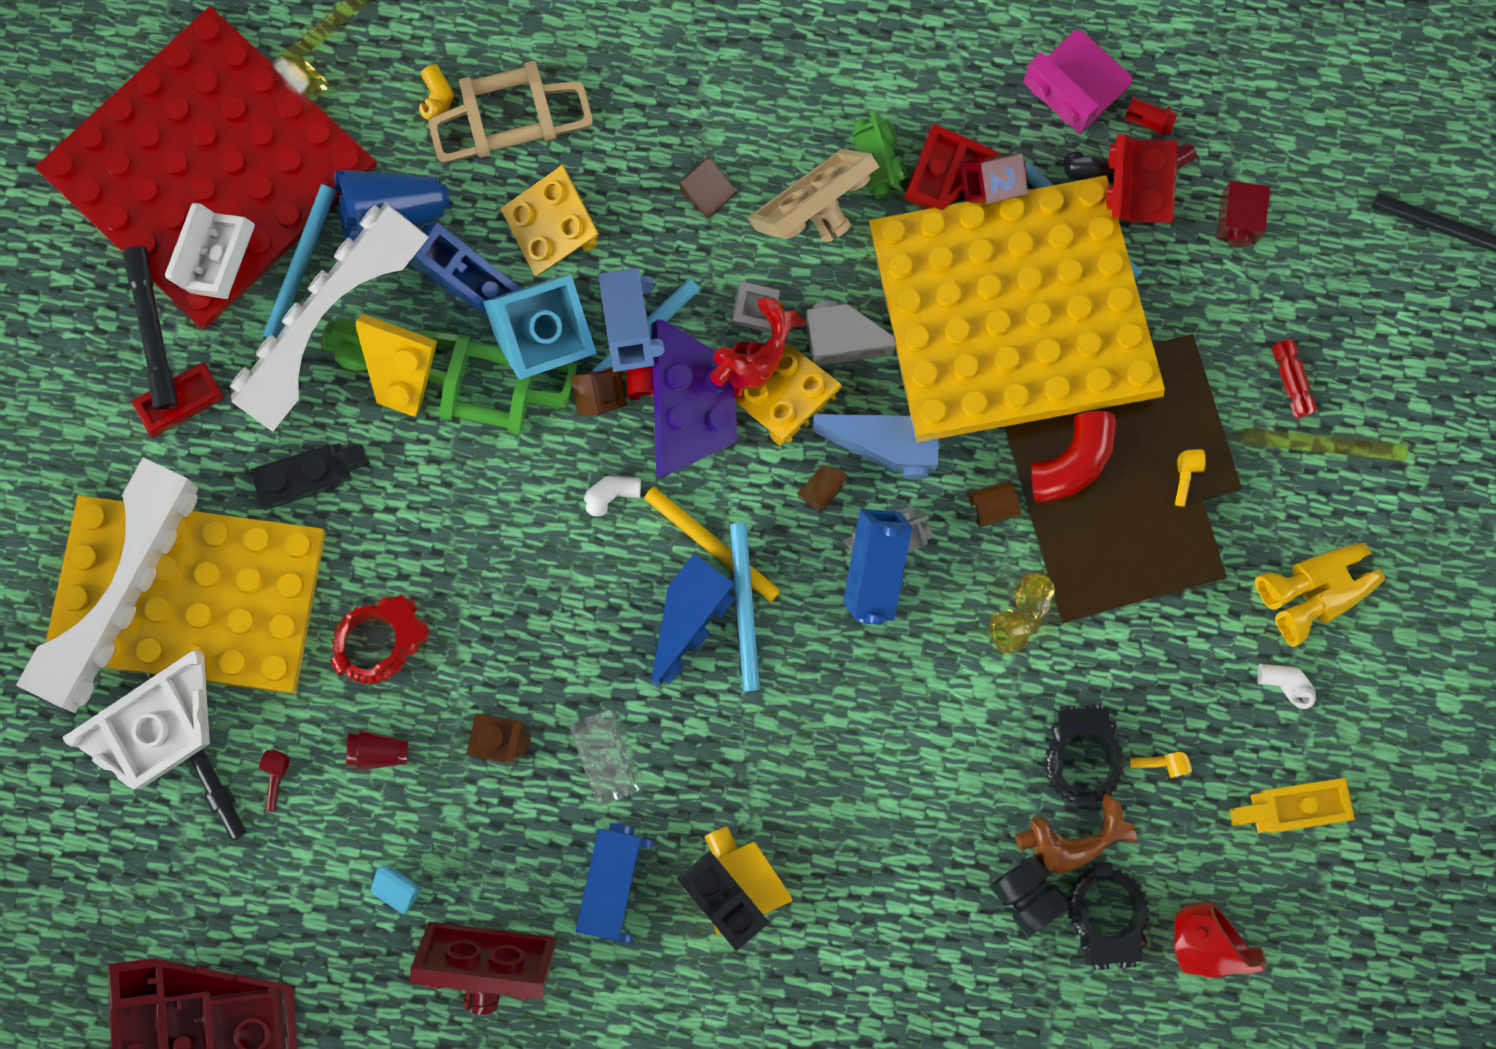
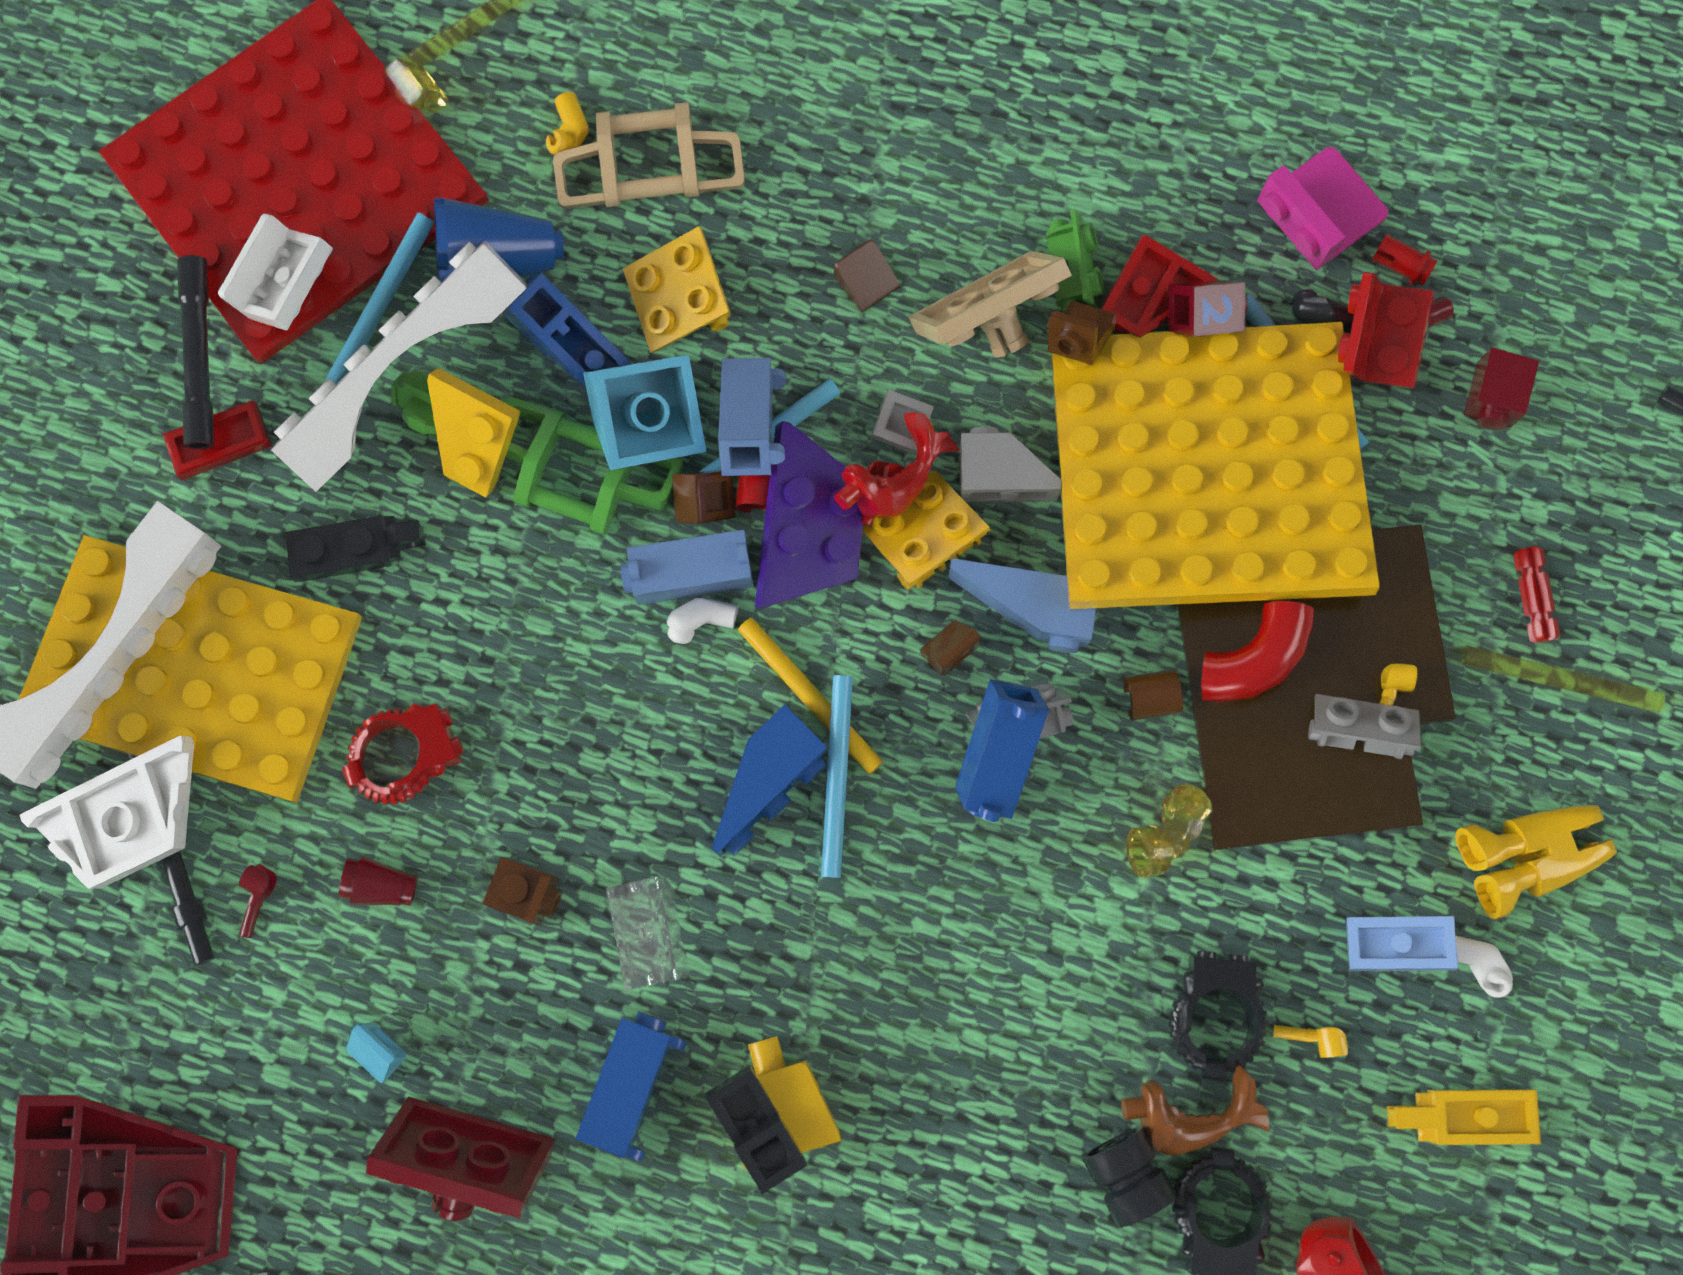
camera: 15 degrees right, 0 degrees up
(595, 452) = (687, 567): none -> medium blue brick
(892, 212) = (1080, 332): none -> reddish brown bracket
(1184, 503) = (1381, 727): none -> light grey hinge
(1222, 676) = (1401, 943): none -> light blue plate

